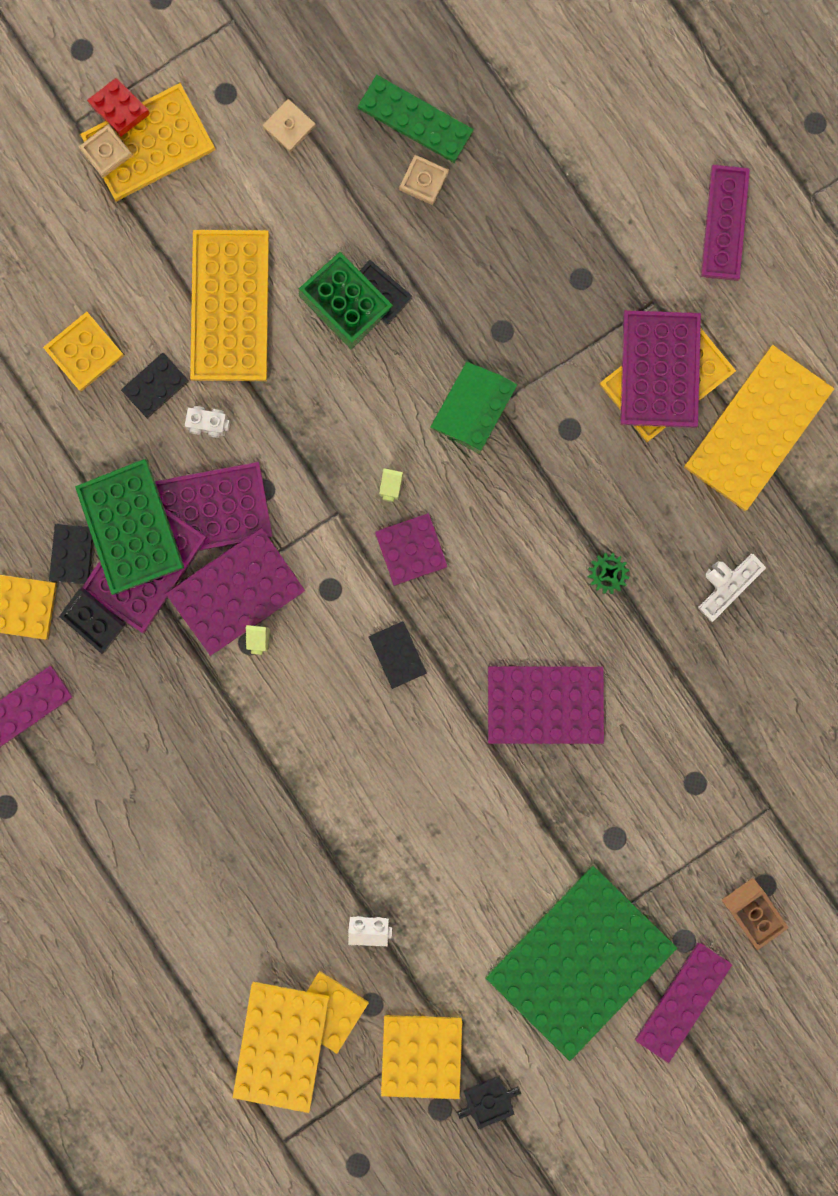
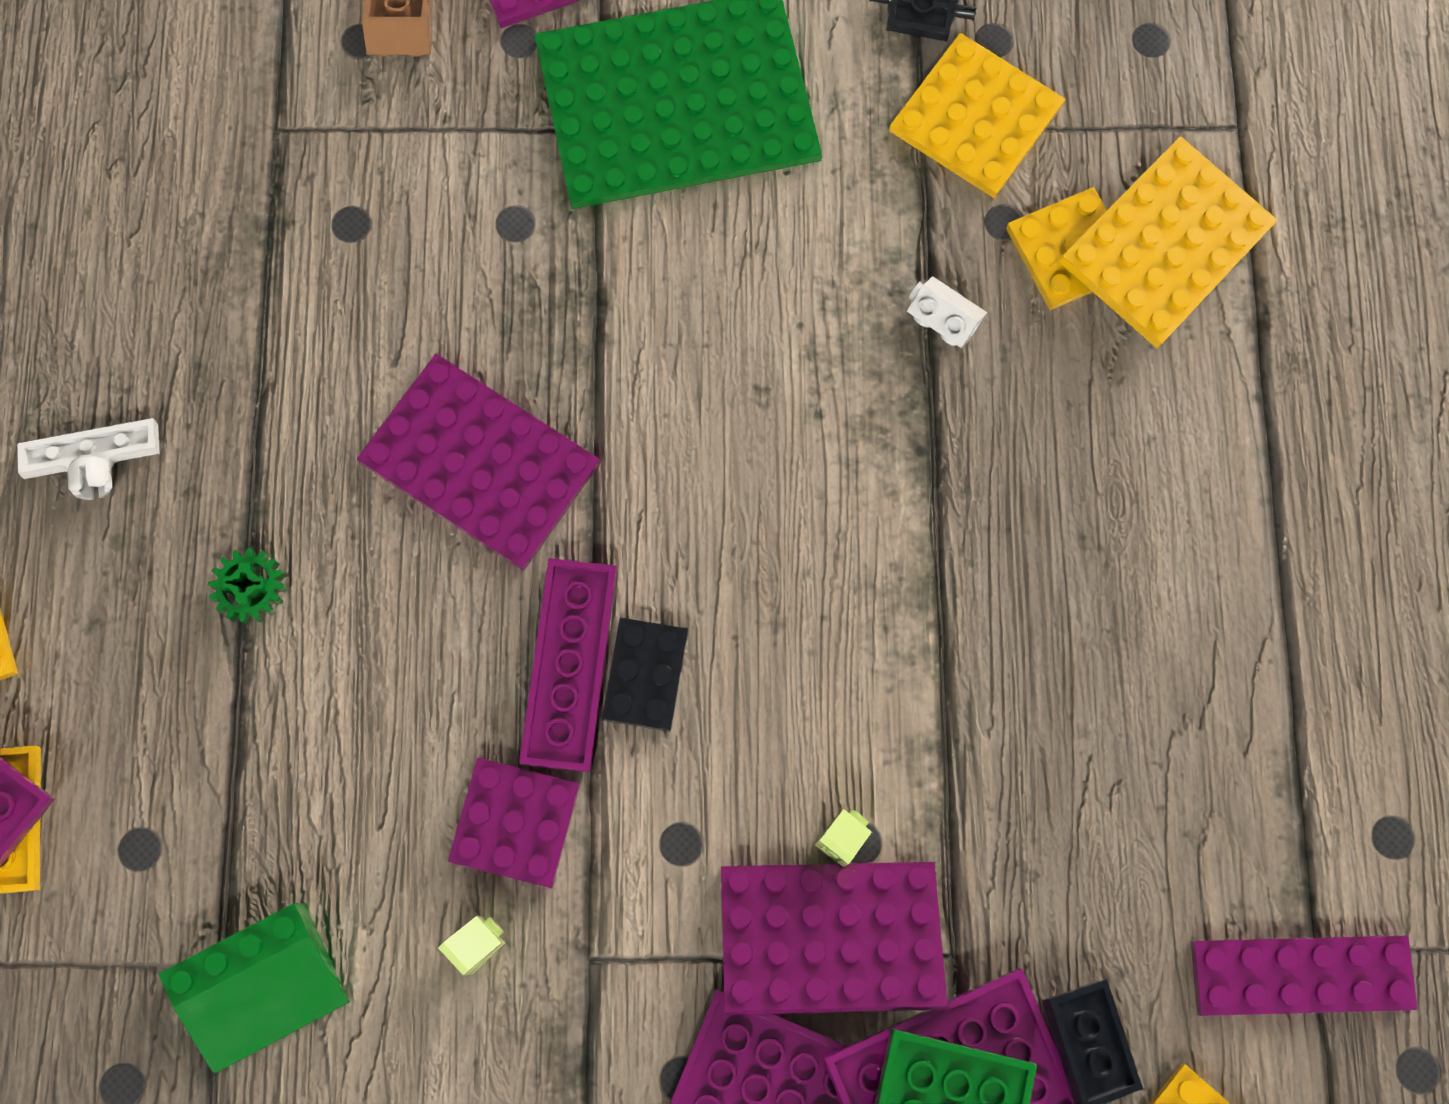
camera: 150 degrees left, 10 degrees down
(435, 636) = (568, 665): none -> magenta plate

